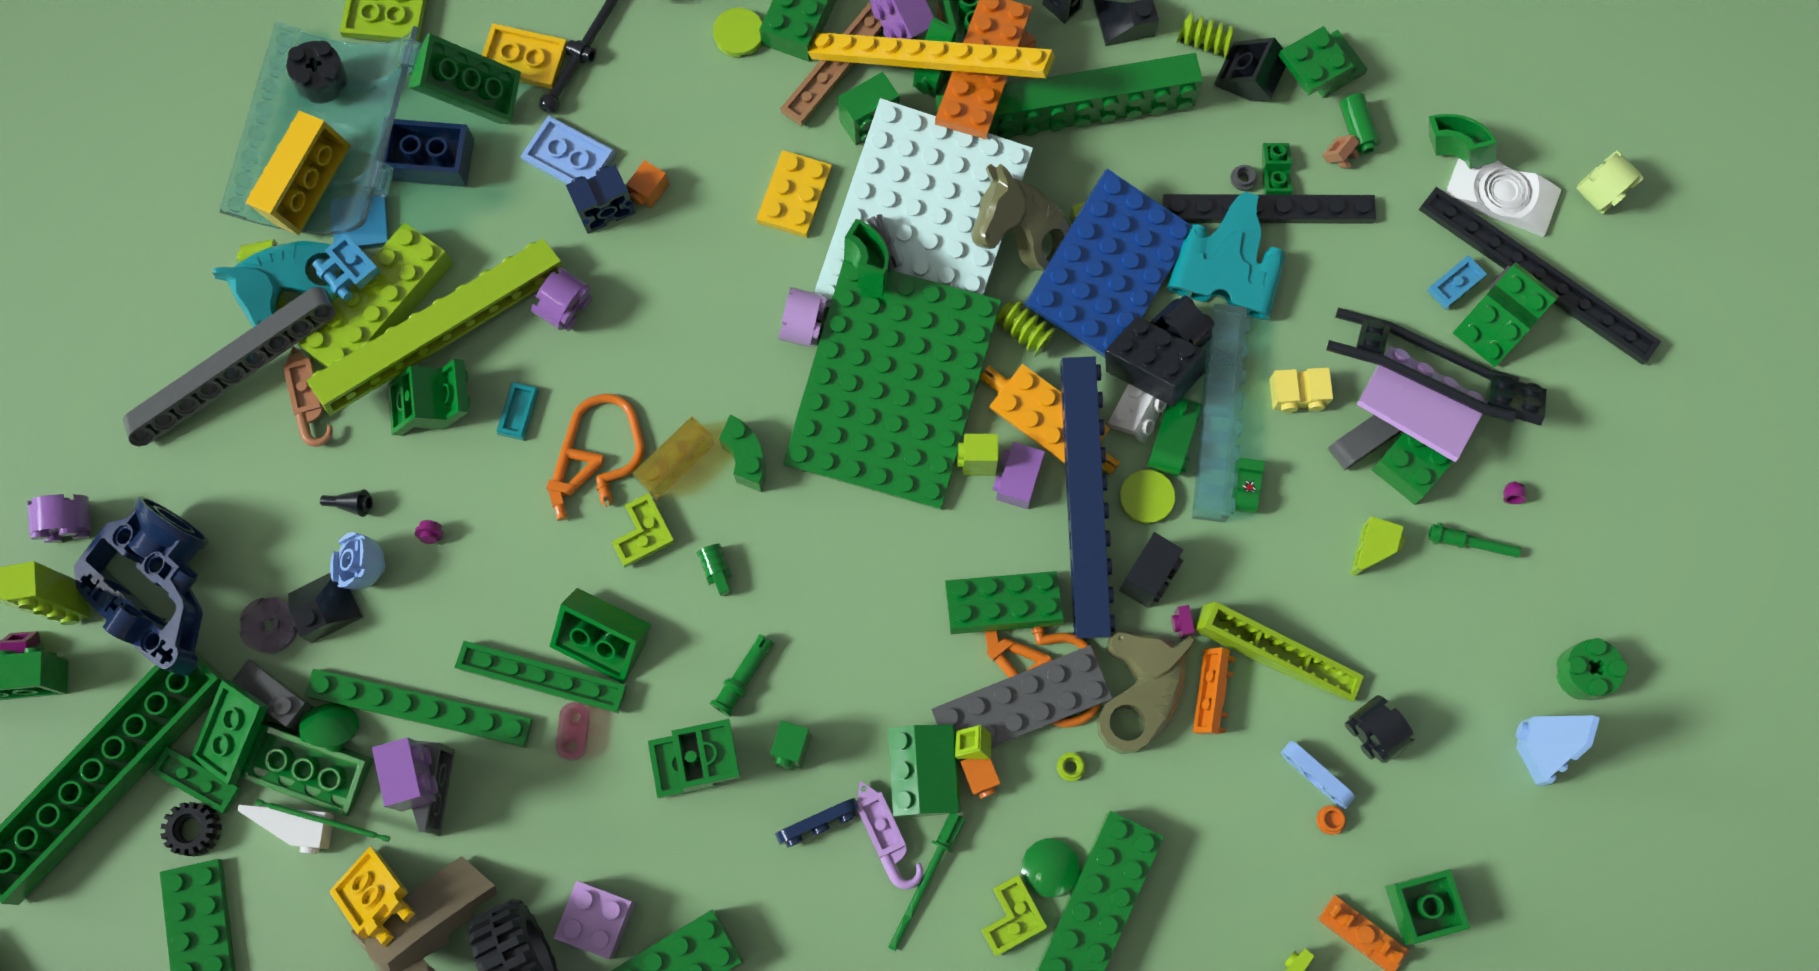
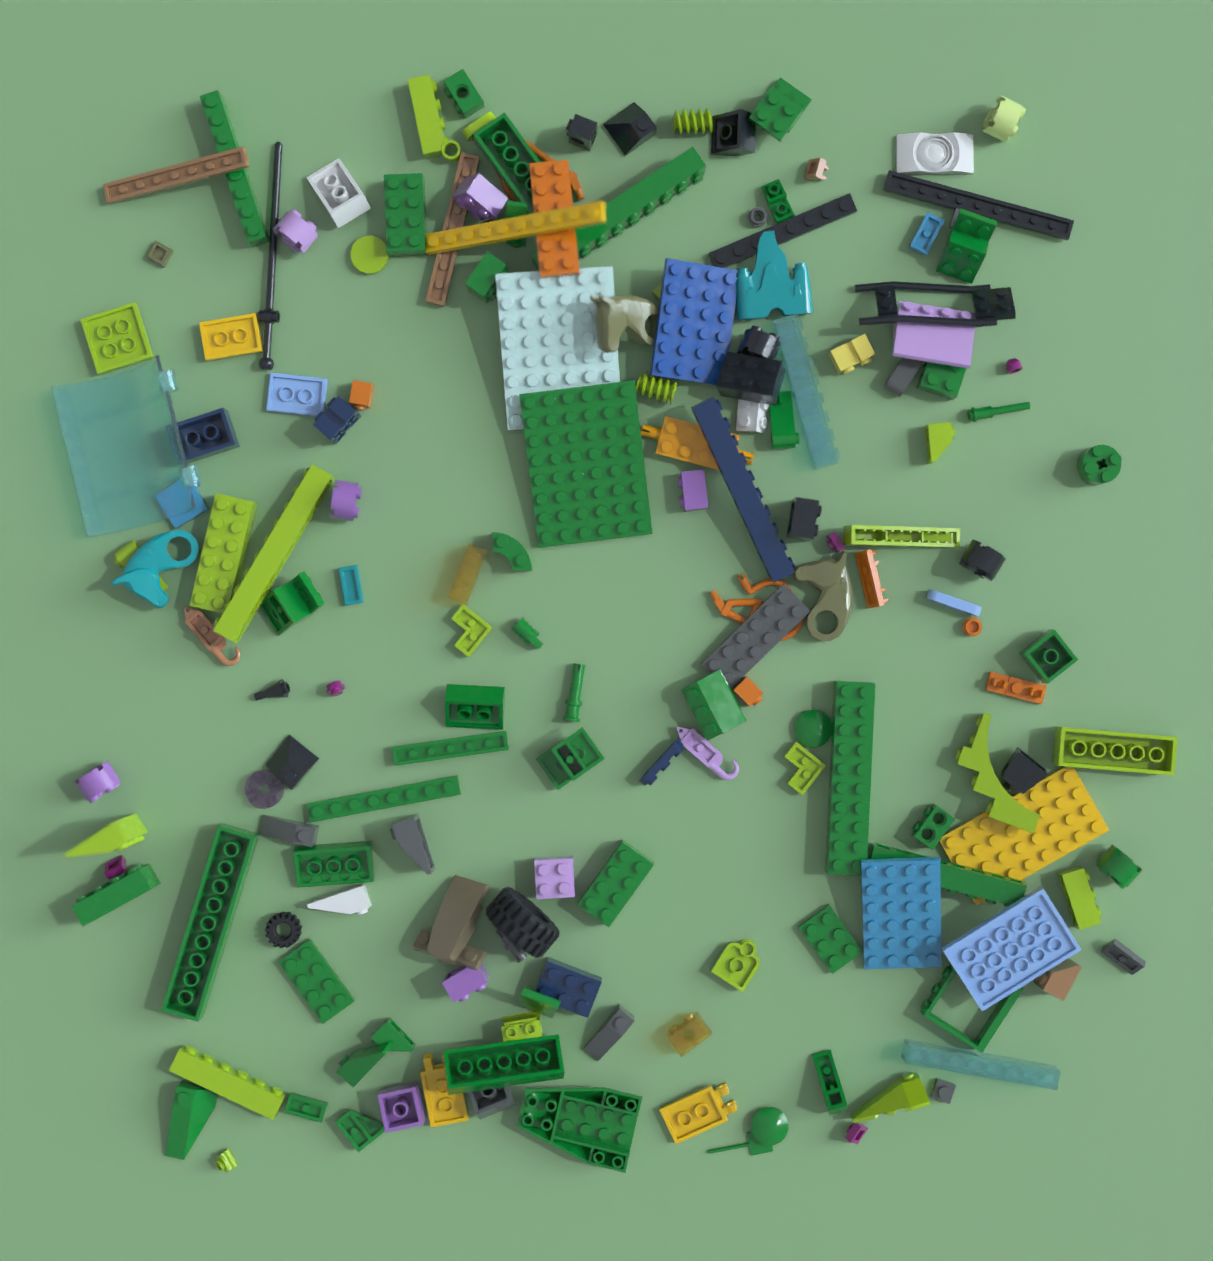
camera: 25 degrees left, 15 degrees up
(162, 548) = (170, 770): dark blue piece -> none
(195, 780) = (270, 900): green plate -> none
(229, 366) = (153, 638): dark grey beam -> none
(229, 732) = (277, 864): green plate -> none
(298, 173) = (128, 490): yellow brick -> none
(316, 71) = (90, 416): black brick -> none
(322, 820) = (362, 891): green piece -> none
(328, 726) = (336, 834): green dish -> none
(354, 263) = (199, 537): dark azure plate -> none
(357, 562) = (301, 728): light blue cylinder -> none
(370, 896) = (415, 922): yellow tile -> none
(405, 774) = (406, 847): medium lavender brick -> none
(465, 79) = (208, 377): green slope -> none
(558, 489) = (417, 596): orange piece -> none
(570, 732) = (486, 772): clear pink plate -> none
(790, 745) = (625, 725): green brick -> none
(794, 194) = (461, 357): yellow plate -> none
(800, 317) = (508, 446): lavender brick -> none
(869, 255) = (536, 388): green brick -> none
(879, 225) = (541, 373): dark grey pin -> none
(944, 842) = (743, 741): green piece -> none
(973, 743) = (737, 676): lime slope -> none
(978, 454) = (663, 490): lime brick -> none
(1004, 602) = (718, 578): green plate -> none
(1077, 760) = (807, 660): lime plate -> none
(1147, 497) = (780, 469): lime tile -> none
(1248, 484) = (842, 434): green leg -> none
(1360, 122) = (821, 143): green brick -> none
(1462, 138) = (895, 128): green brick -> none
(1551, 743) = (1091, 525): light blue wedge -> none

